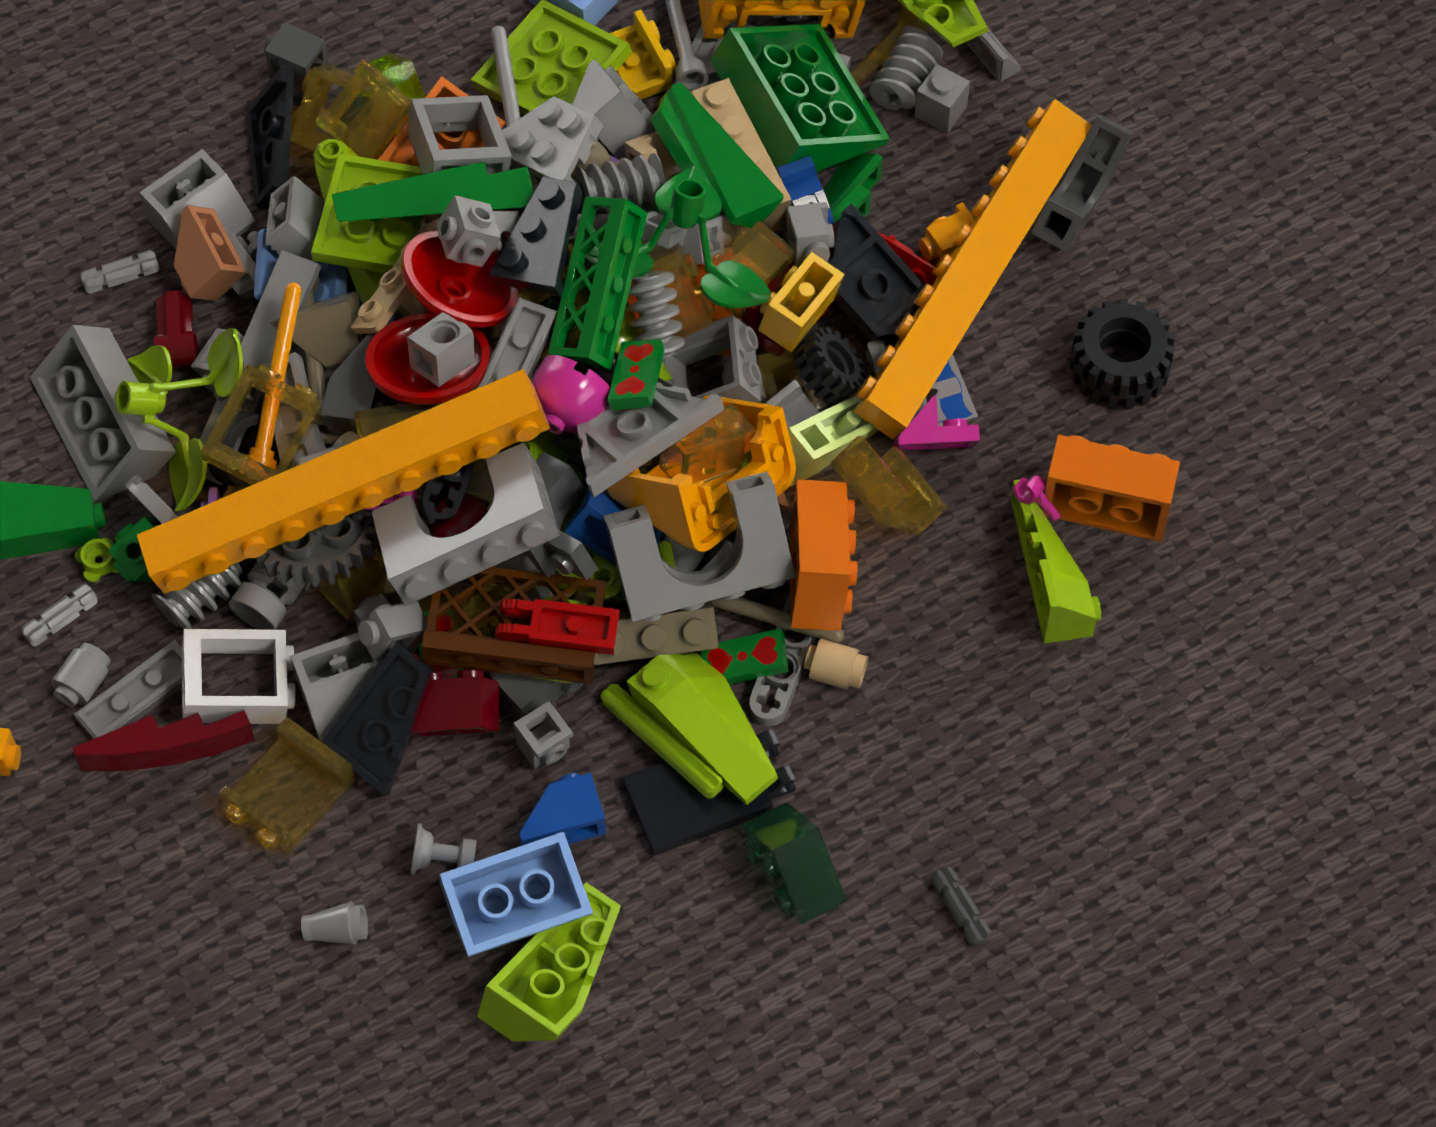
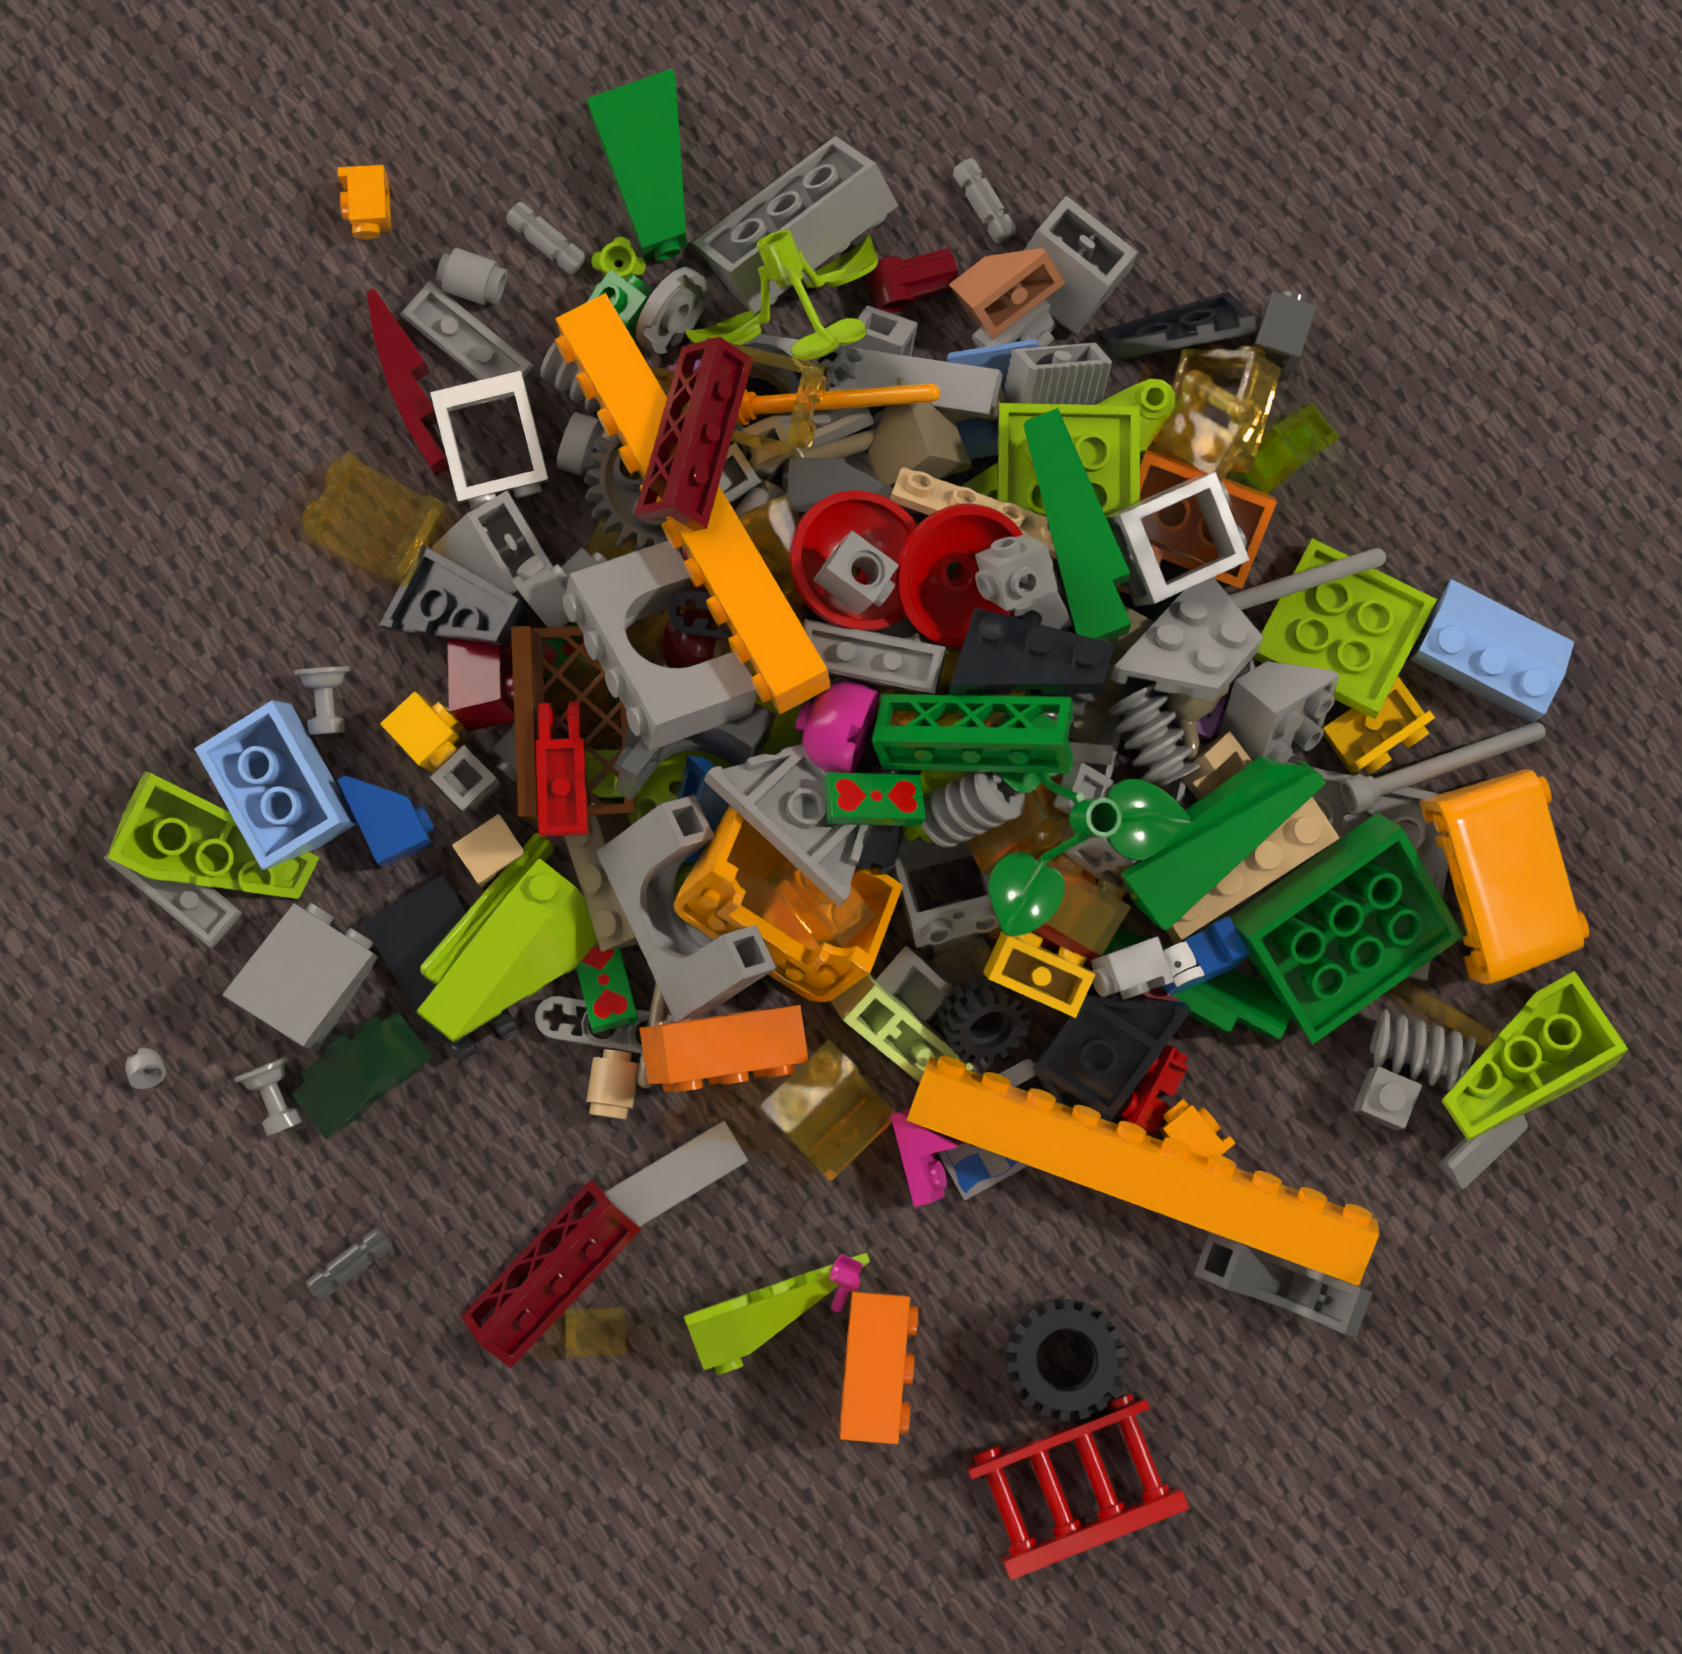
camera: 75 degrees right, 20 degrees up
(292, 445) = (701, 433): none -> dark red fence
(337, 924) = (228, 609): light grey cone -> none
(495, 758) = (425, 731): none -> yellow brick
(609, 997) = (194, 906): none -> light grey tile
(610, 732) = (488, 850): none -> tan panel
(697, 899) = (303, 975): none -> light grey slope
(755, 1056) = (136, 1070): none -> light grey hinge
(781, 948) = (265, 1080): none -> light grey piece
(924, 632) = (679, 1174): none -> light grey tile
(997, 729) = (553, 1277): none -> dark red fence
(1049, 713) = (595, 1331): none -> clear yellow panel
(1257, 341) = (1069, 1534): none -> red fence

